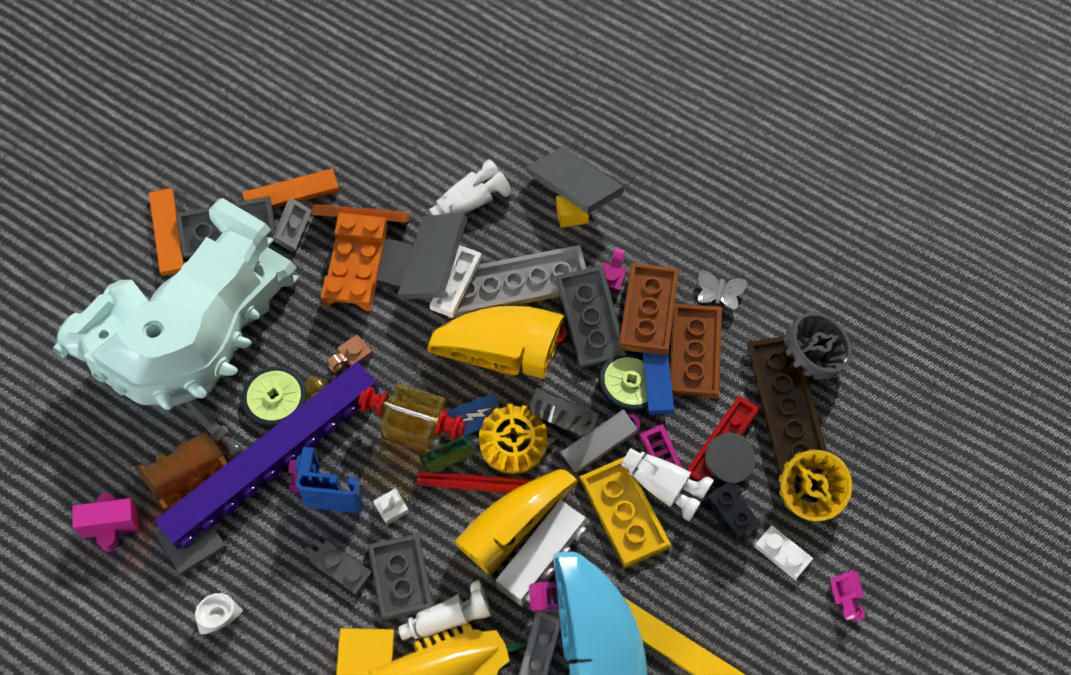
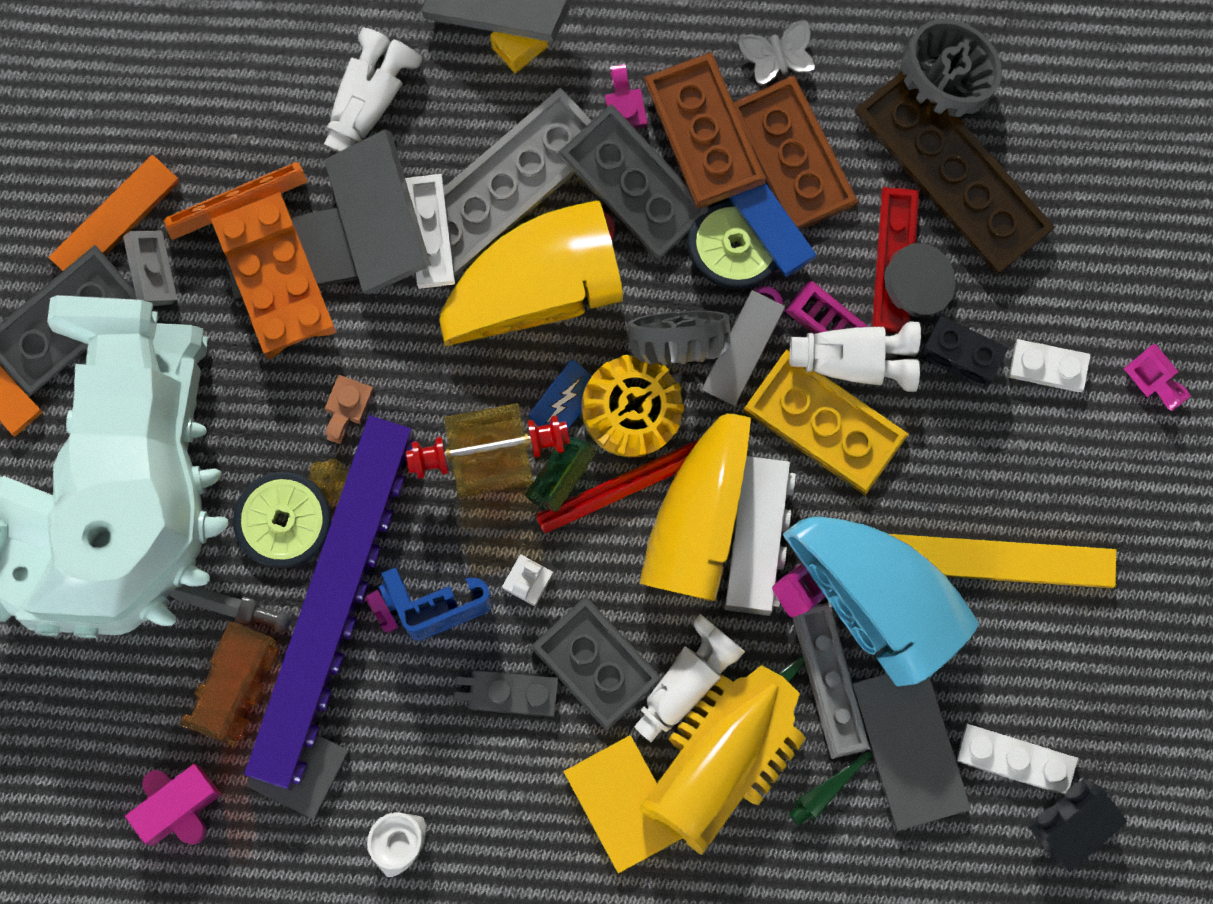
camera: 30 degrees left, 15 degrees up
(831, 496) = (1074, 260): yellow gear -> none

